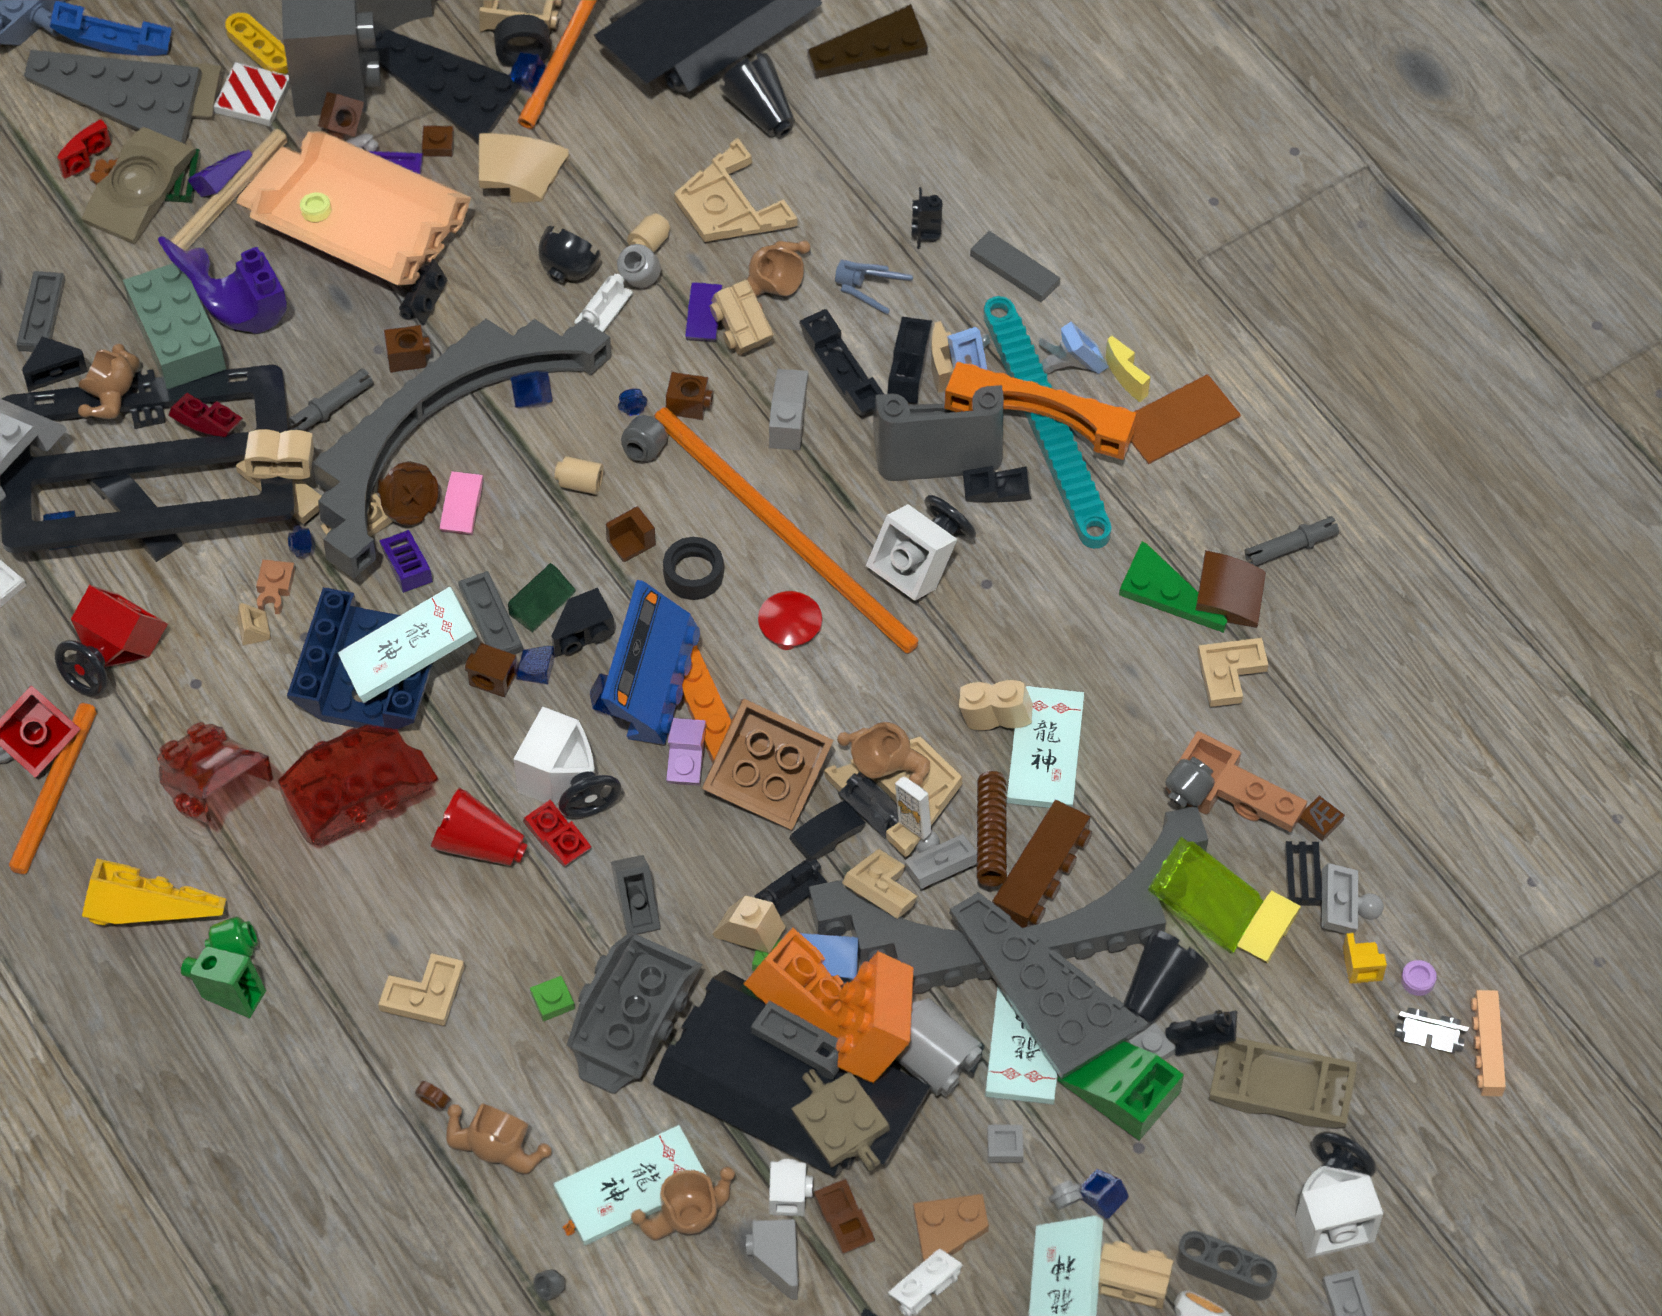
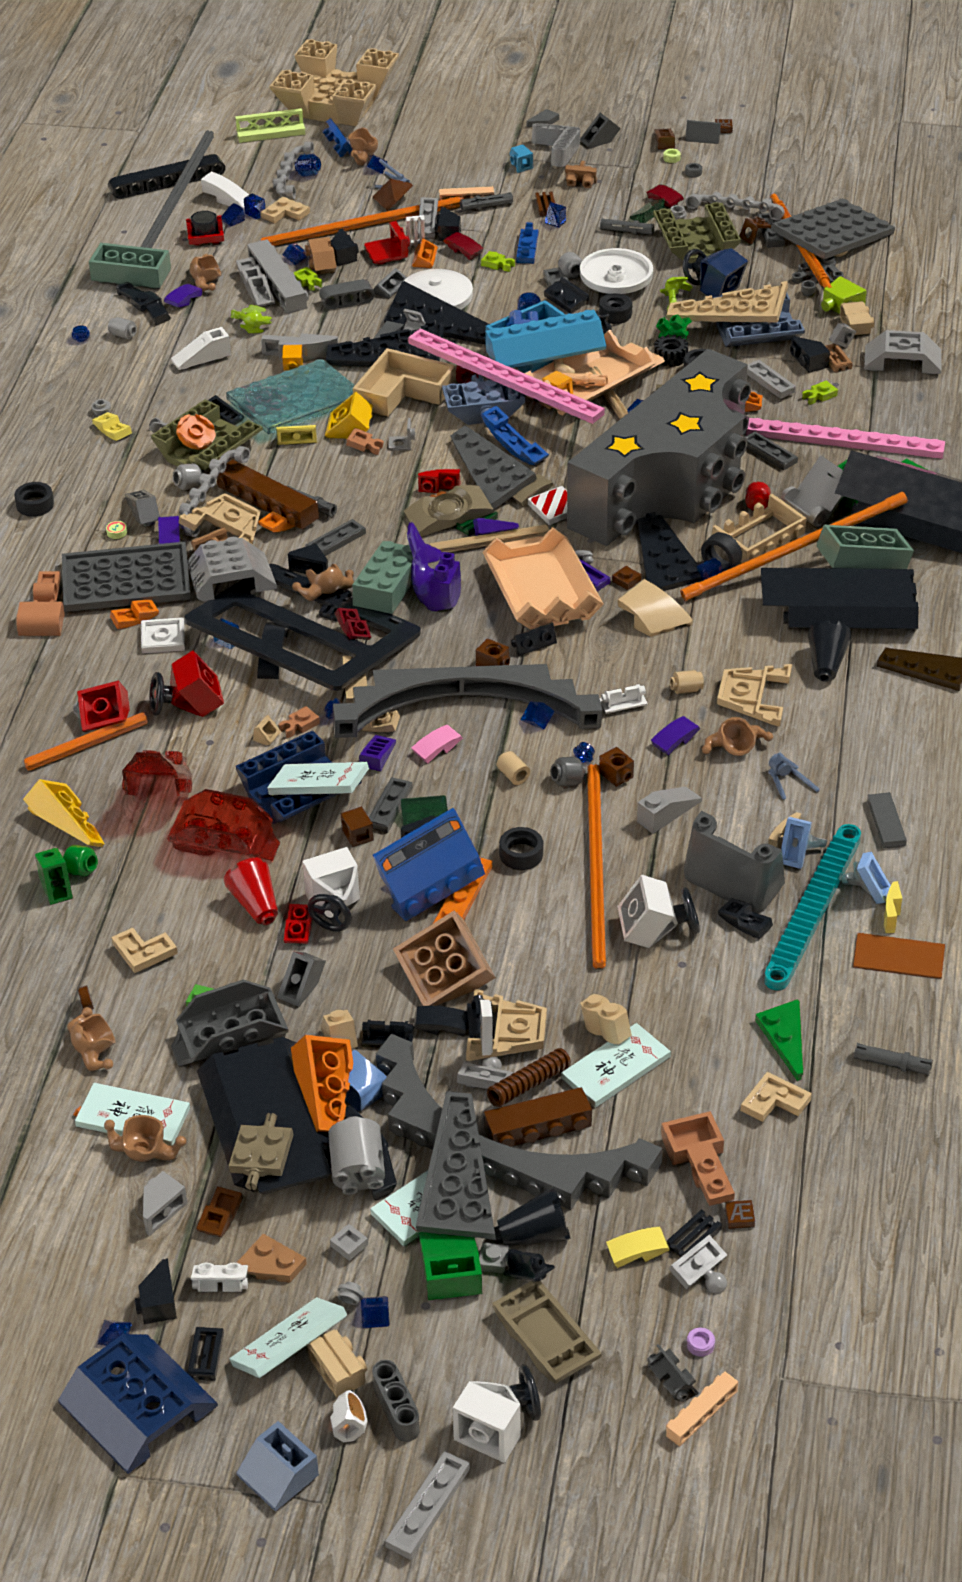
camera: 45 degrees right, 15 degrees down
(279, 454) = (361, 656): tan brick -> none
(315, 207) = (523, 568): yellowish green tile -> none
(320, 408) = (426, 658): dark grey pin -> none
(352, 111) = (592, 531): reddish brown brick -> none
(408, 492) = (410, 717): reddish brown tile -> none
(536, 664) = (384, 839): clear blue slope -> none
(548, 1279) = (35, 1128): dark grey hinge -> none
(566, 255) = (626, 663): black cylinder -> none
(630, 534) = (507, 811): reddish brown panel -> none
(639, 265) = (661, 689): light grey head -> none
(686, 751) = (411, 923): lavender slope -> none
(741, 317) = (688, 745): tan brick -> none
(789, 1188) = (205, 1174): white brick -> none
(790, 619) = (546, 907): red dish -> none
(797, 1038) = (287, 1095): dark grey plate -> none
(839, 363) = (725, 799): black slope -> none
(875, 881) = (432, 1060): tan plate -> none
(875, 1016) = (330, 1105): orange brick -> none
(884, 751) = (513, 997): medium nougat piece -> none
(909, 358) = (757, 830): black slope -> none
(929, 214) = (852, 758): black hinge -> none
(1103, 425) = (837, 923): orange arch -> none
(1190, 782) = (667, 1128): dark grey head -> none
(1206, 893) = (614, 1196): clear neon green piece -> none
(1231, 589) = (824, 1058): reddish brown slope -> none
(1363, 961) = (673, 1306): yellow panel -> none

